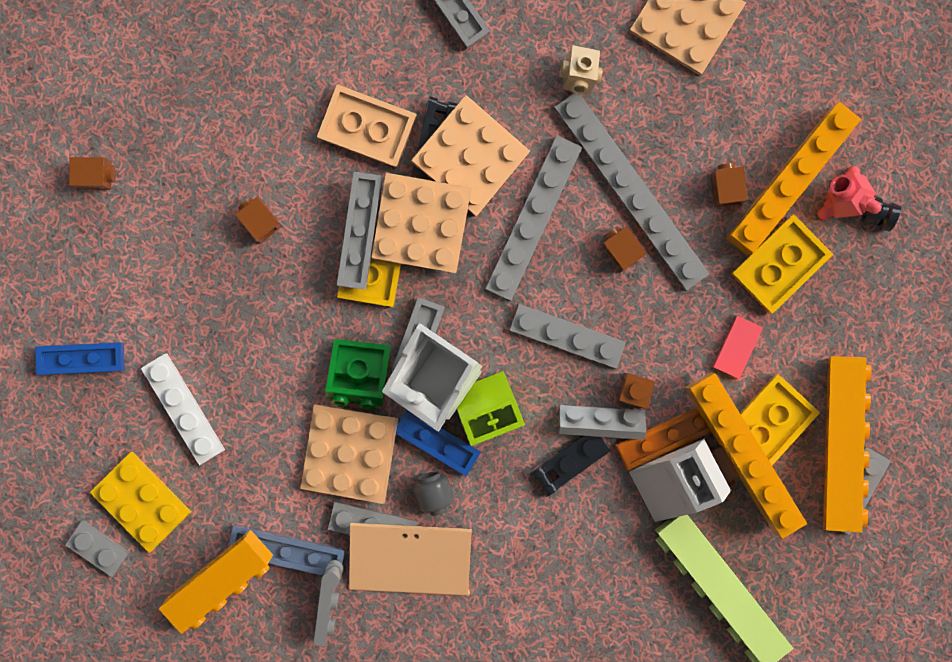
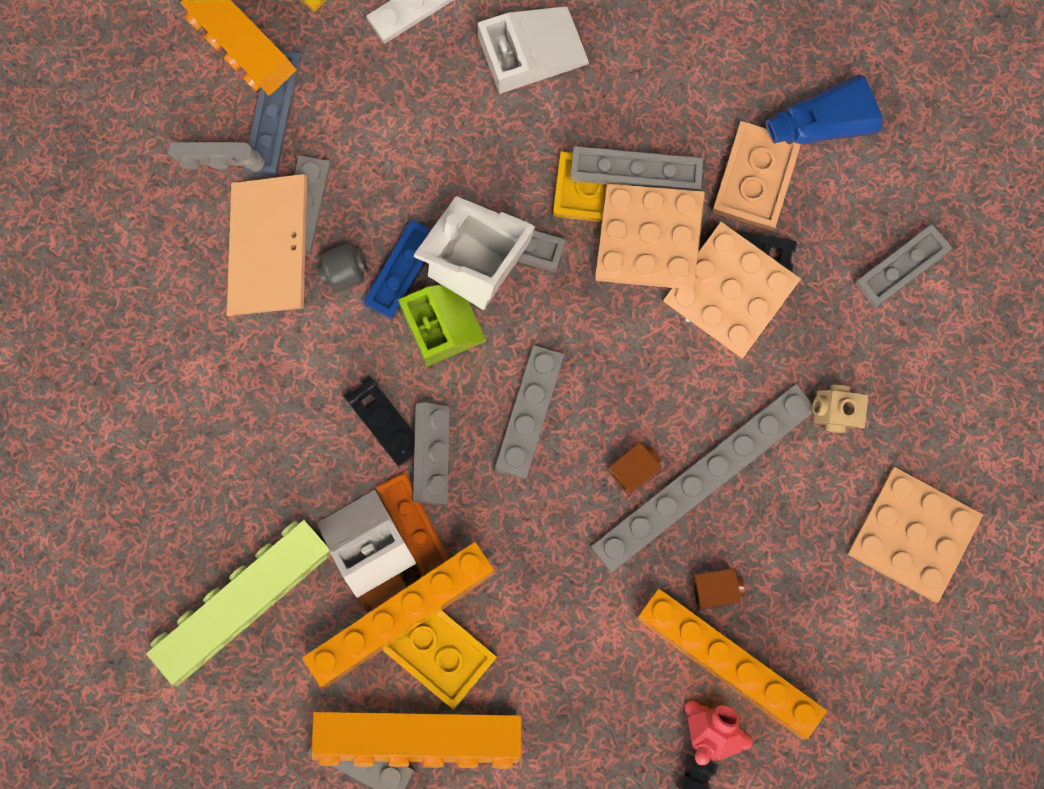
camera: 85 degrees right, 10 degrees down
(237, 318) = (530, 46): none -> white slope
(258, 219) = (643, 63): dark orange brick -> none
(315, 54) = (835, 113): none -> blue piece
(349, 453) = (384, 174): light nougat plate -> none
(357, 373) = (475, 174): green plate -> none
(533, 218) = (665, 367): light grey plate -> none
(635, 390) = (469, 489): dark orange brick -> none
(737, 347) = (526, 610): coral tile -> none
(782, 264) = (628, 658): yellow plate -> none

